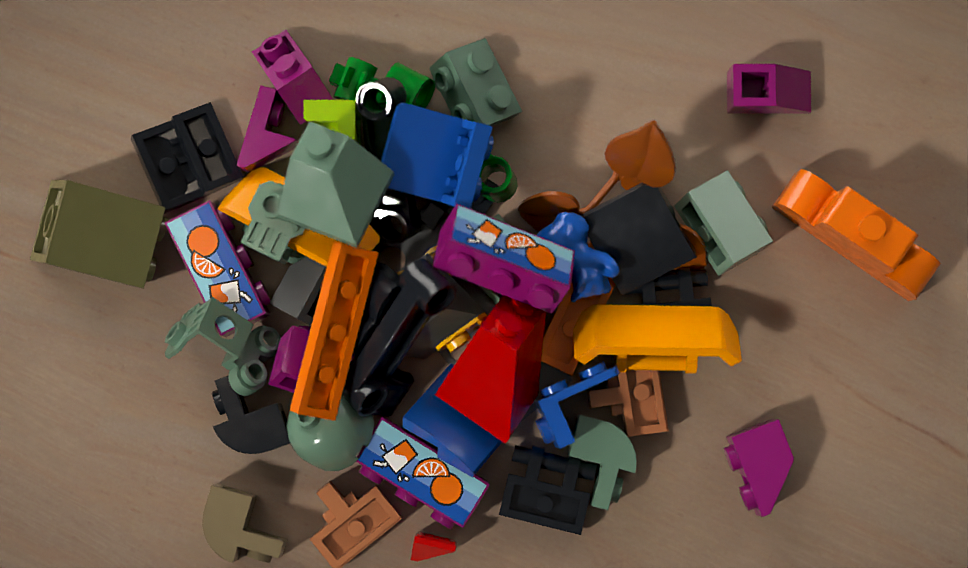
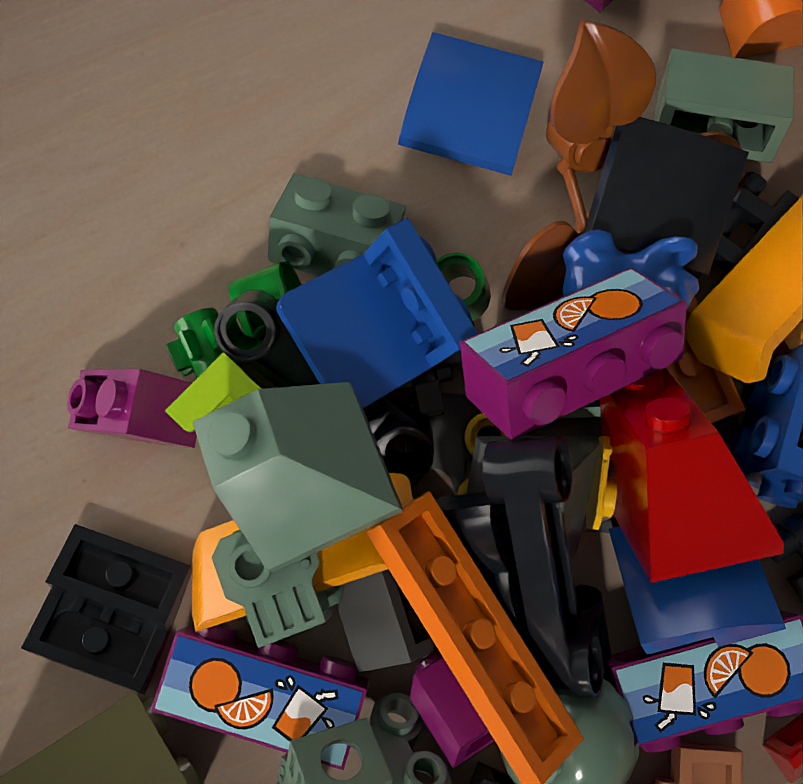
camera: 50 degrees left, 5 degrees down
(261, 144) = (170, 511): magenta slope -> none
(609, 93) = (470, 103): none -> blue slope

